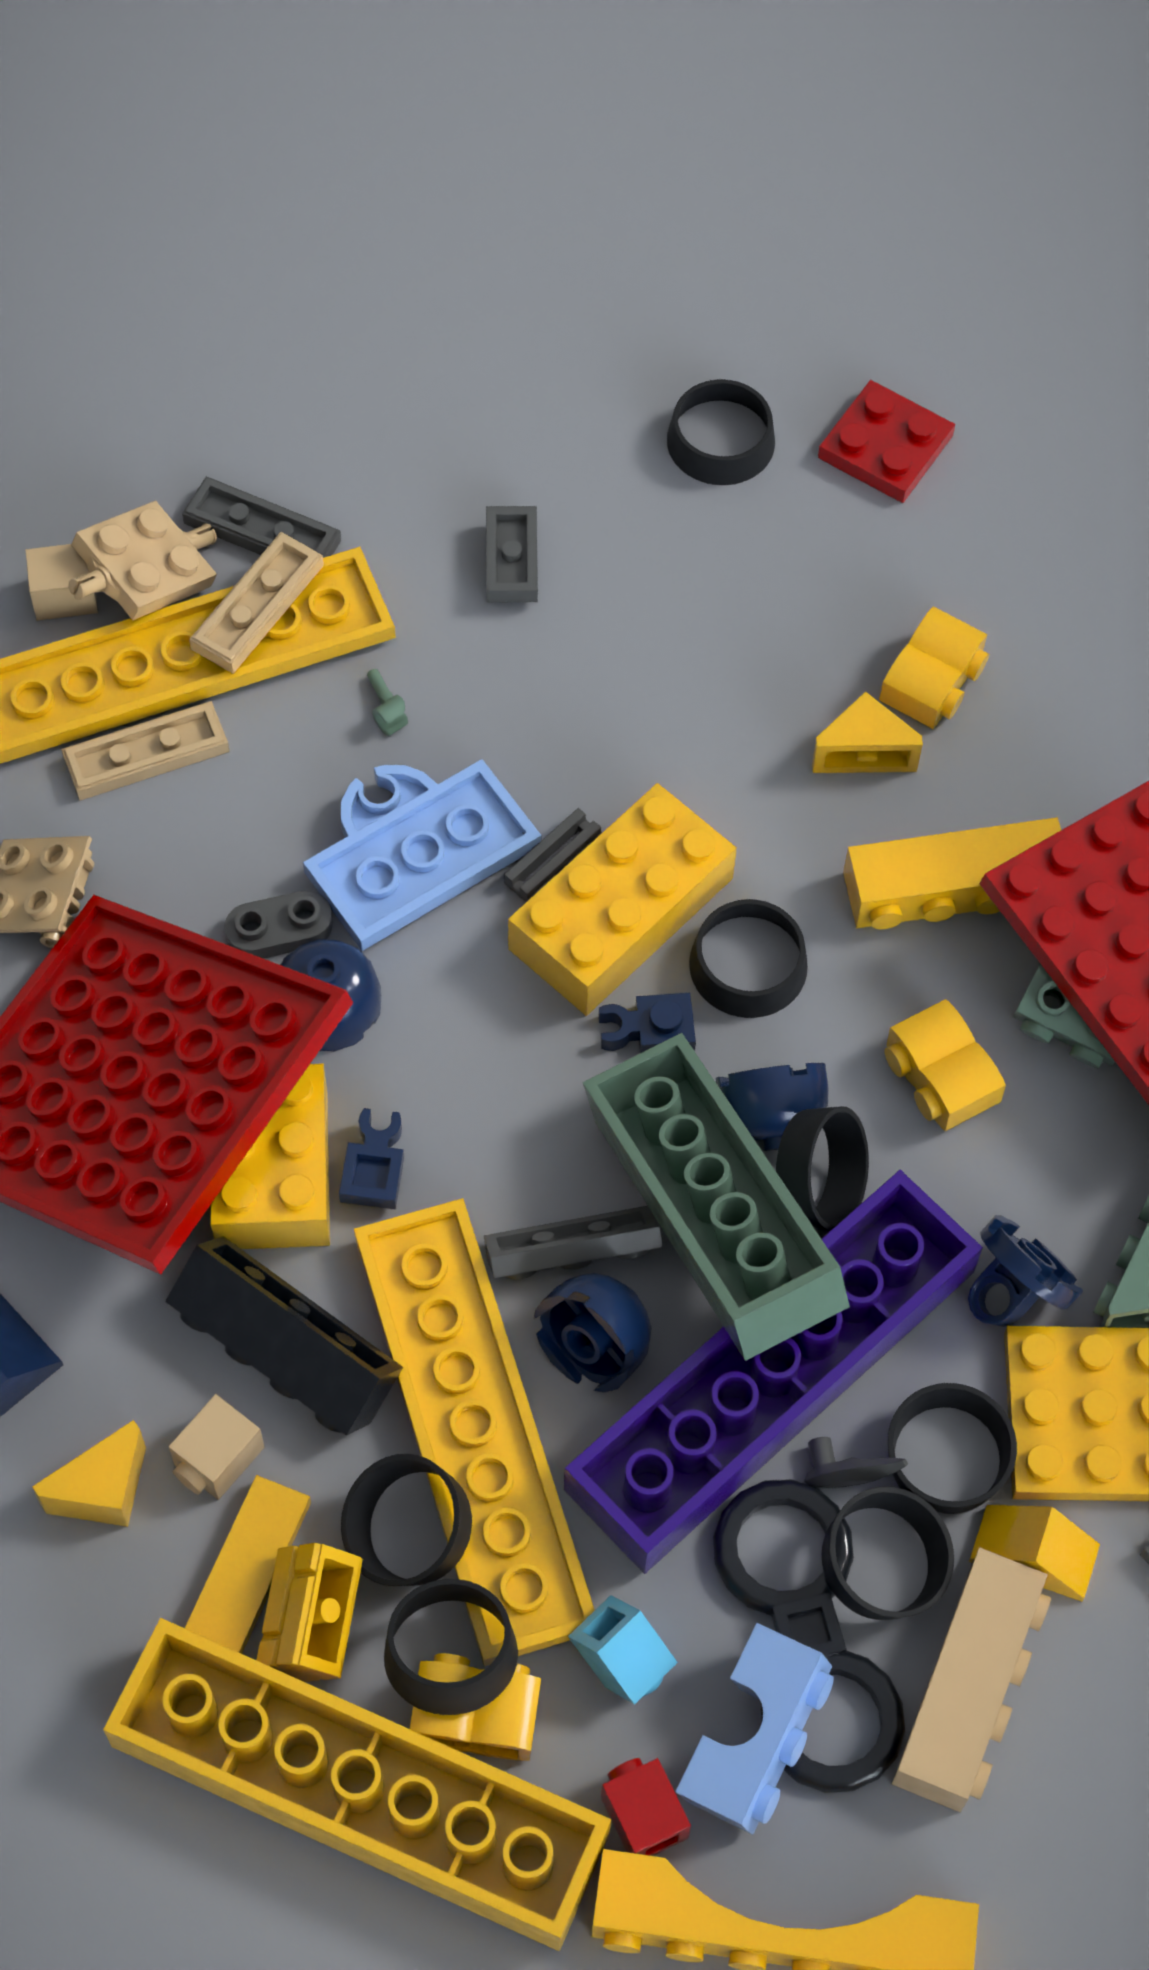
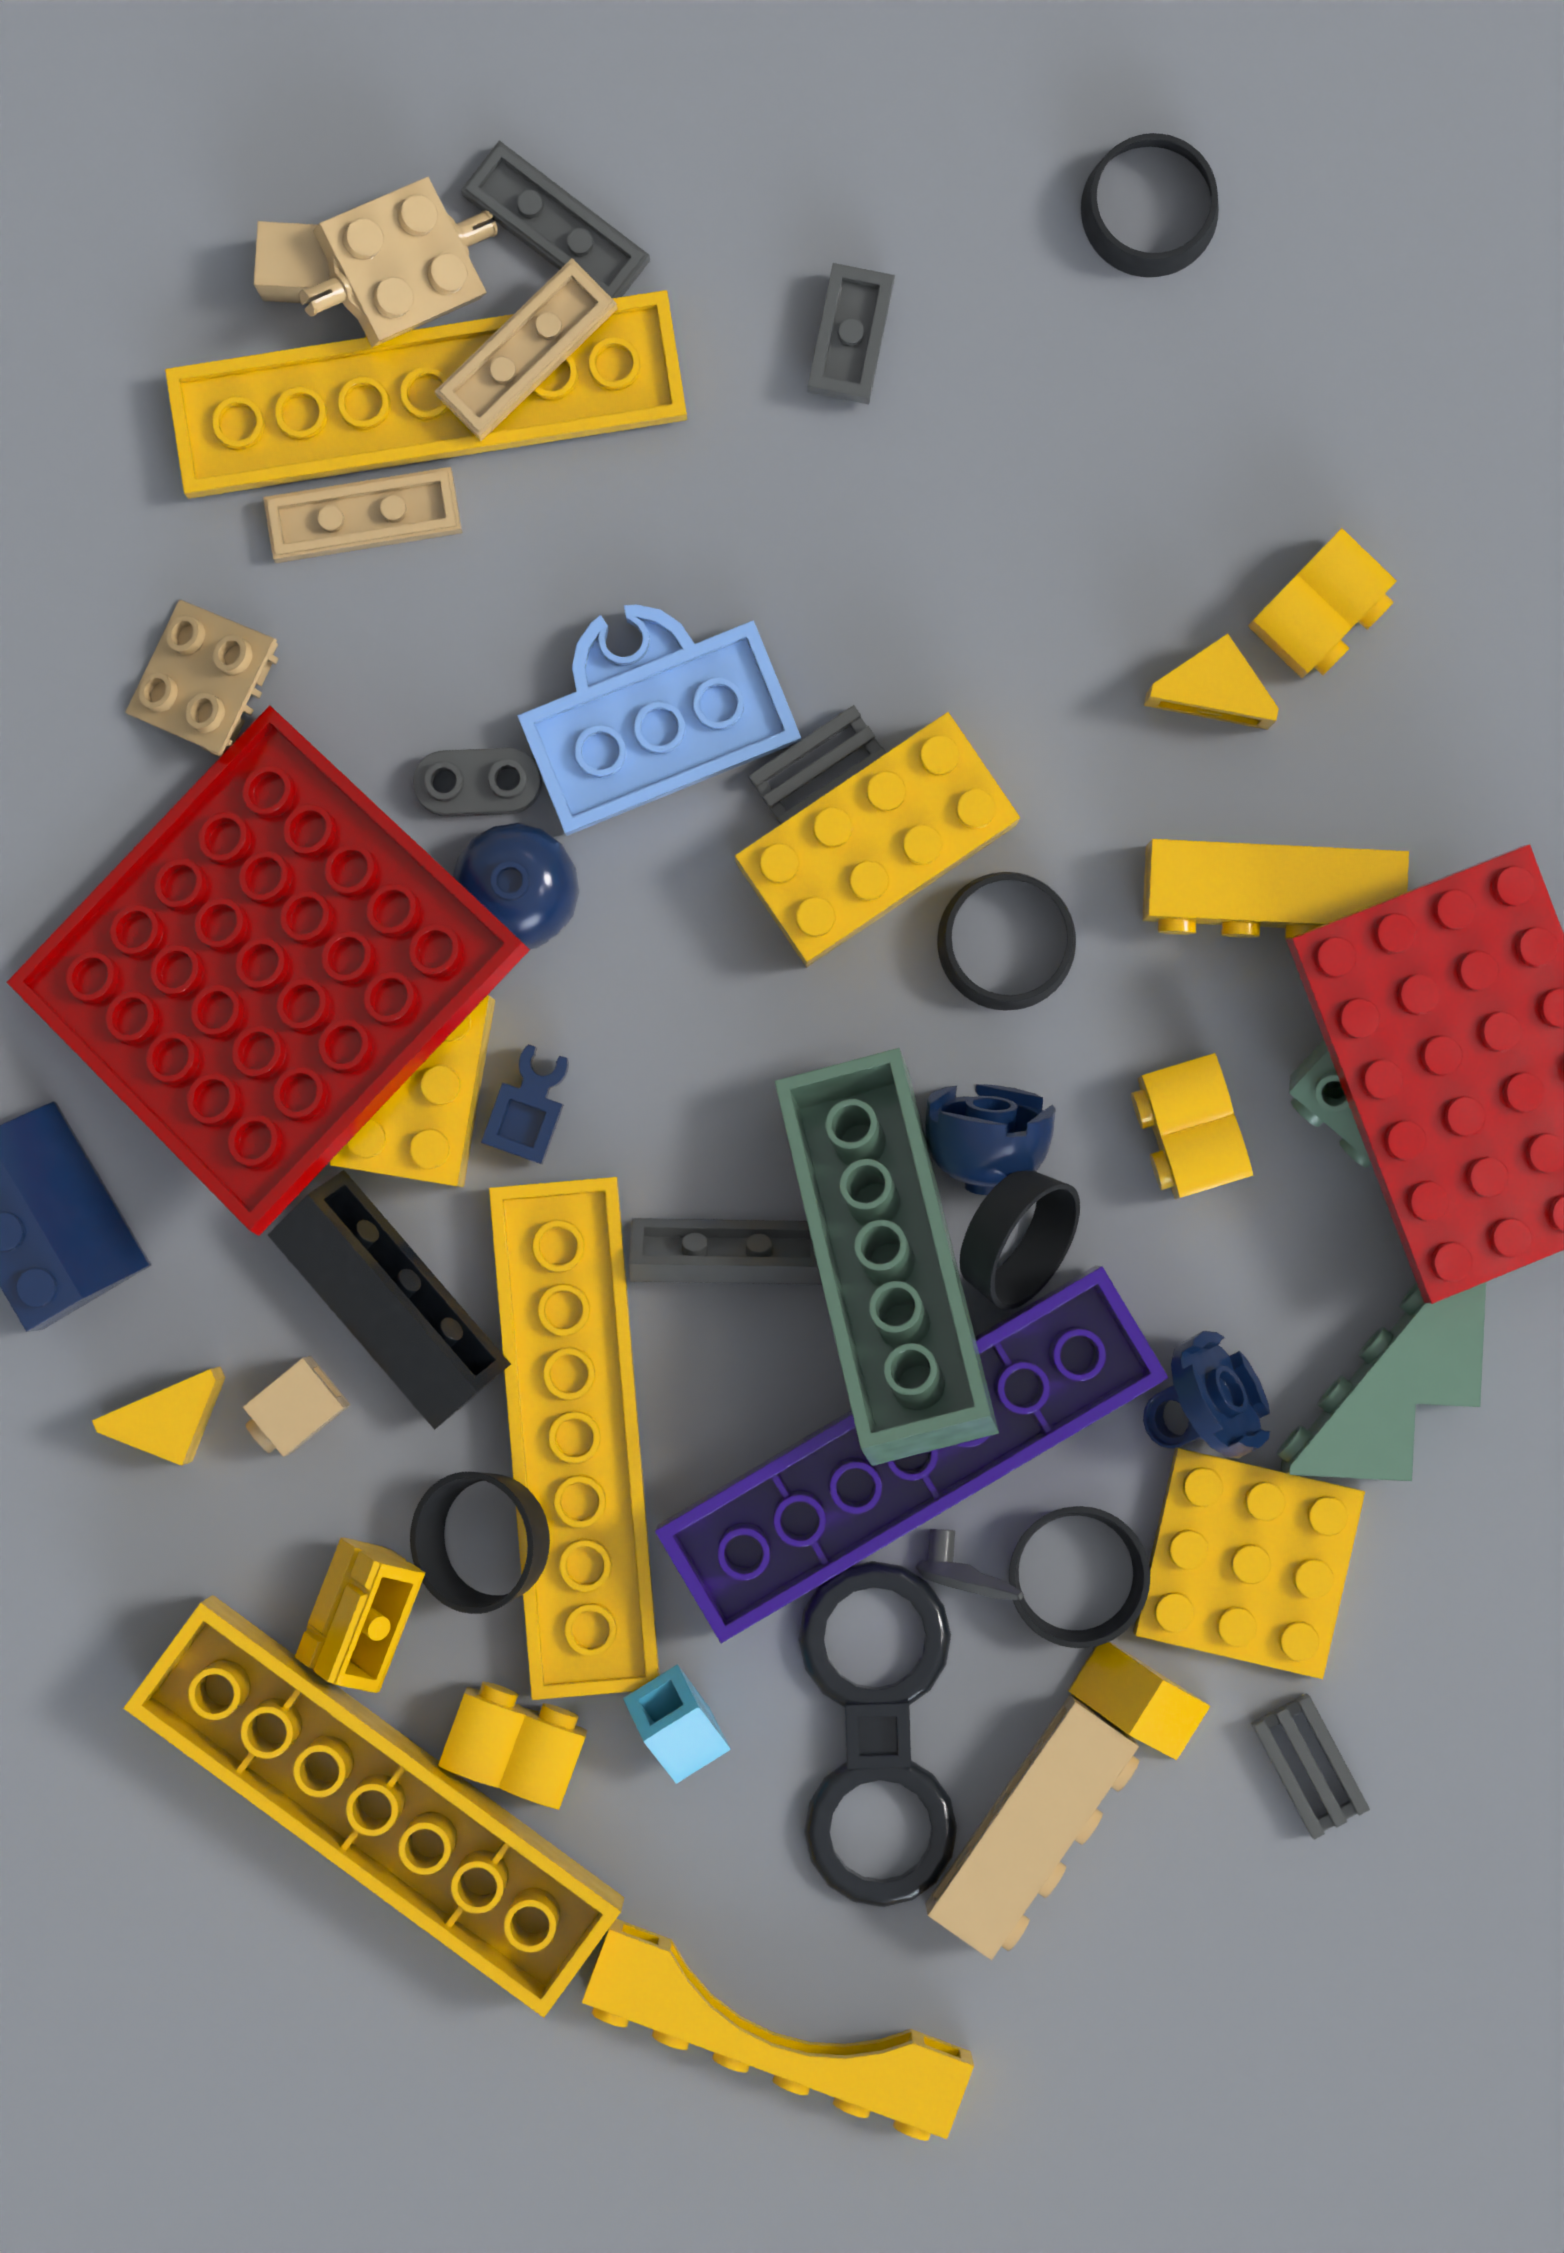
camera: 15 degrees right, 25 degrees up
(246, 1564) = (306, 1539): yellow tile -> none
(390, 714) = (662, 526): sand green hand -> none
(459, 1696) = (523, 1748): black tyre -> none
(594, 1330) = (731, 1361): dark blue cylinder -> none
(644, 1807) = (663, 1886): red brick -> none
(652, 1023) = (886, 1000): dark blue plate -> none
(742, 1779) = (833, 1798): light blue arch -> none
(886, 441) = (1354, 257): red plate -> none
(930, 1530) = (1018, 1721): black tyre -> none

